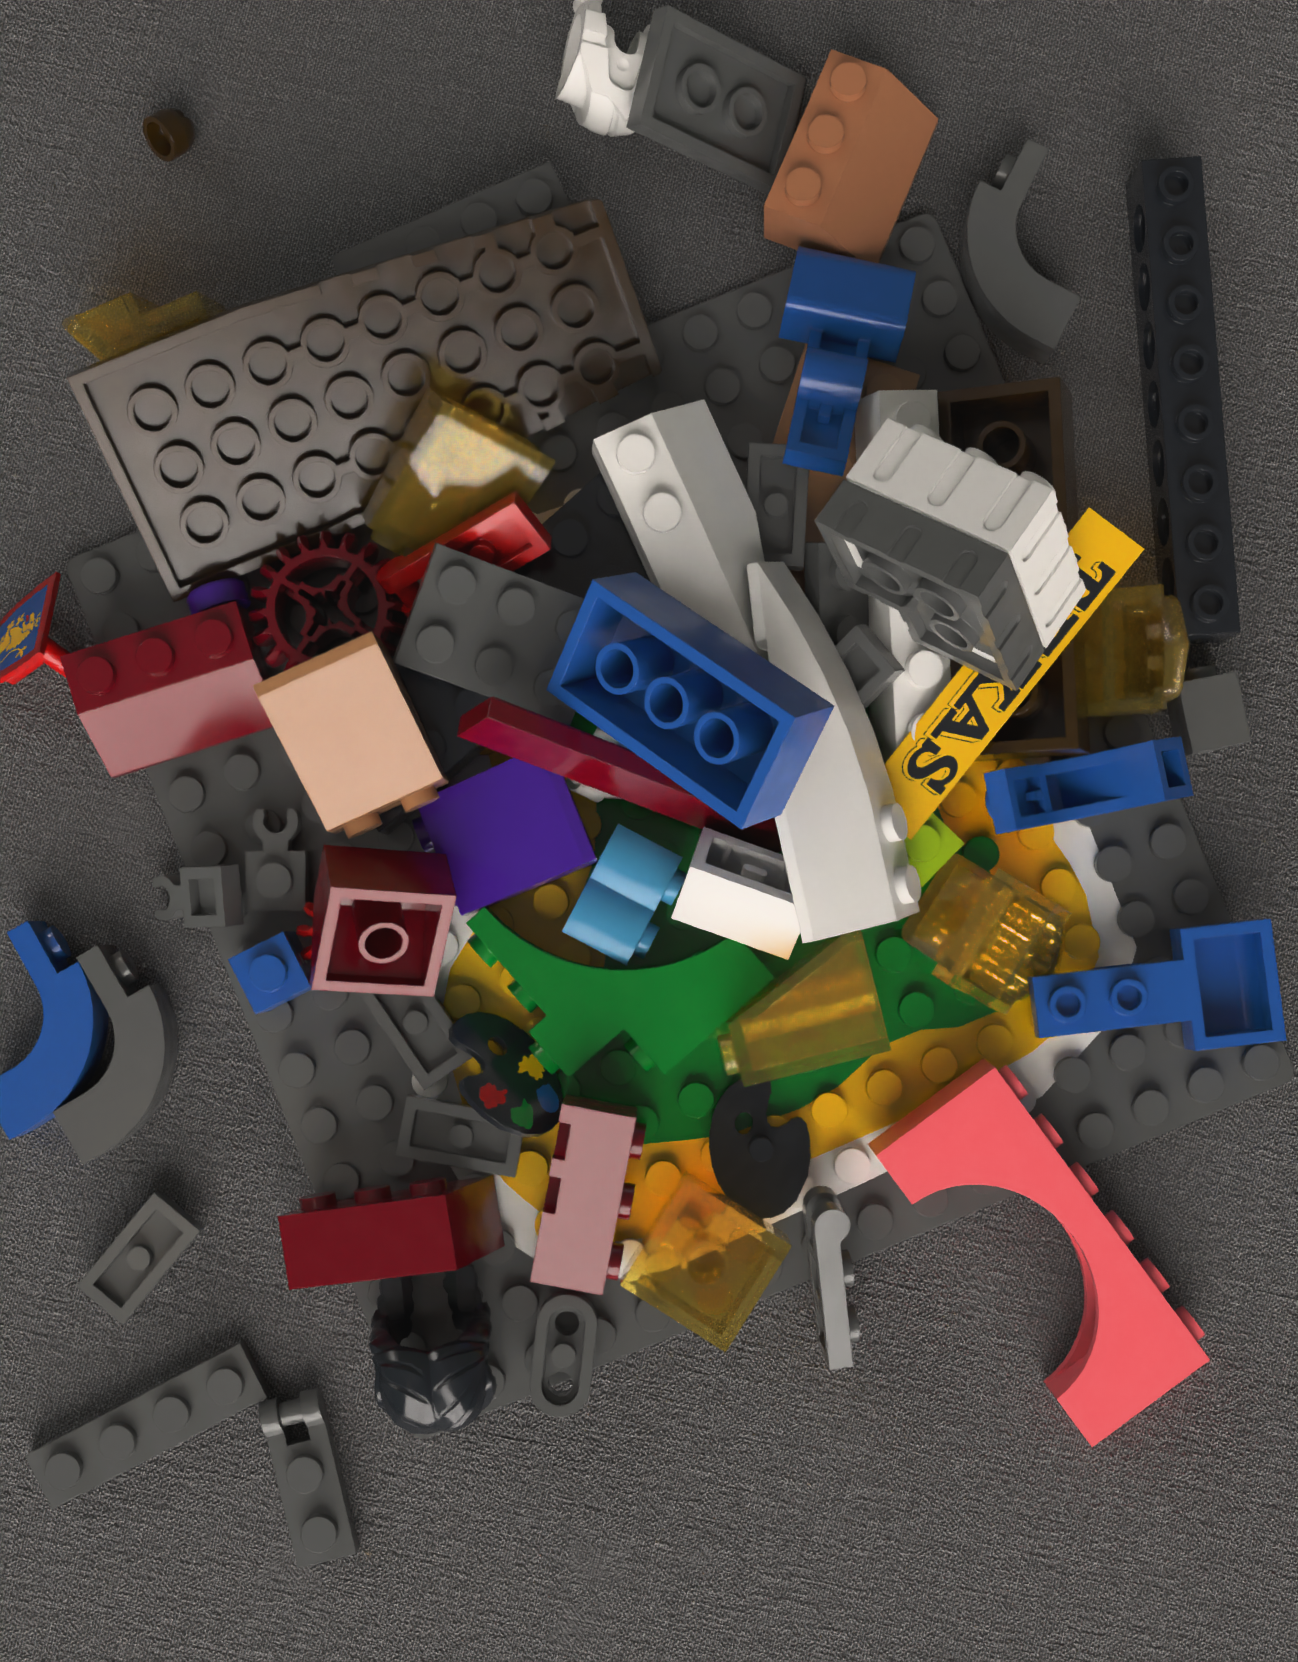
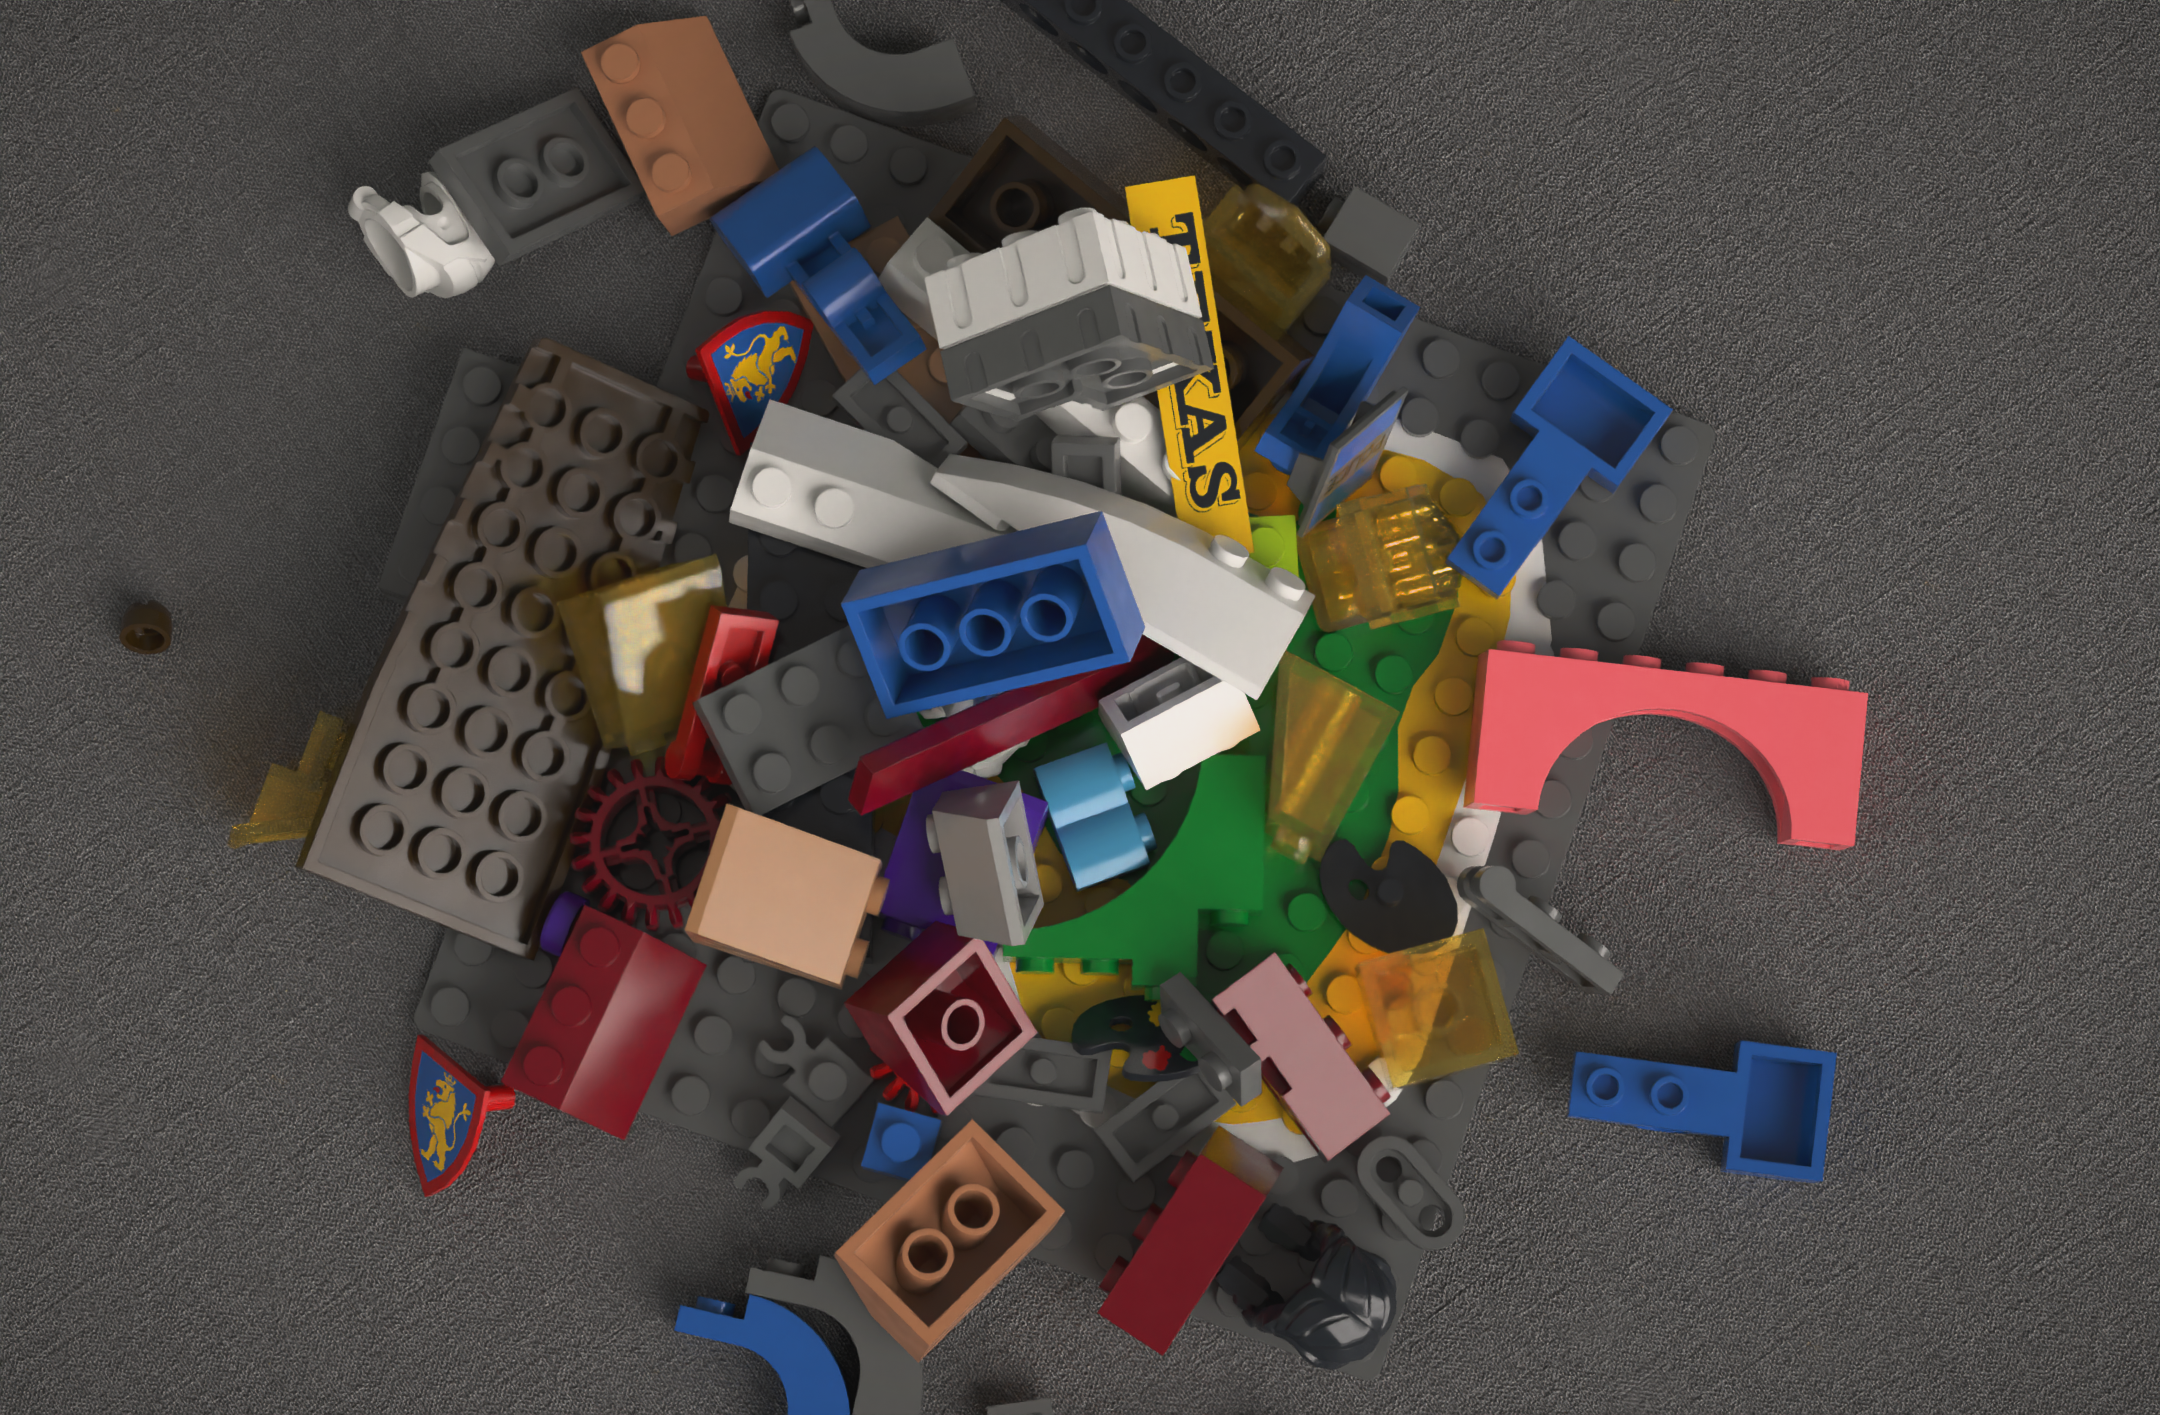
camera: 50 degrees left, 5 degrees down
(230, 1067) = (946, 1239): none -> nougat slope
(510, 857) = (986, 862): none -> light grey slope
(532, 1145) = (1220, 1051): none -> dark grey plate
(724, 367) = (750, 364): none -> shield
(848, 1547) = (1766, 1109): none -> blue plate
(1006, 844) = (1347, 462): none -> dark grey piece

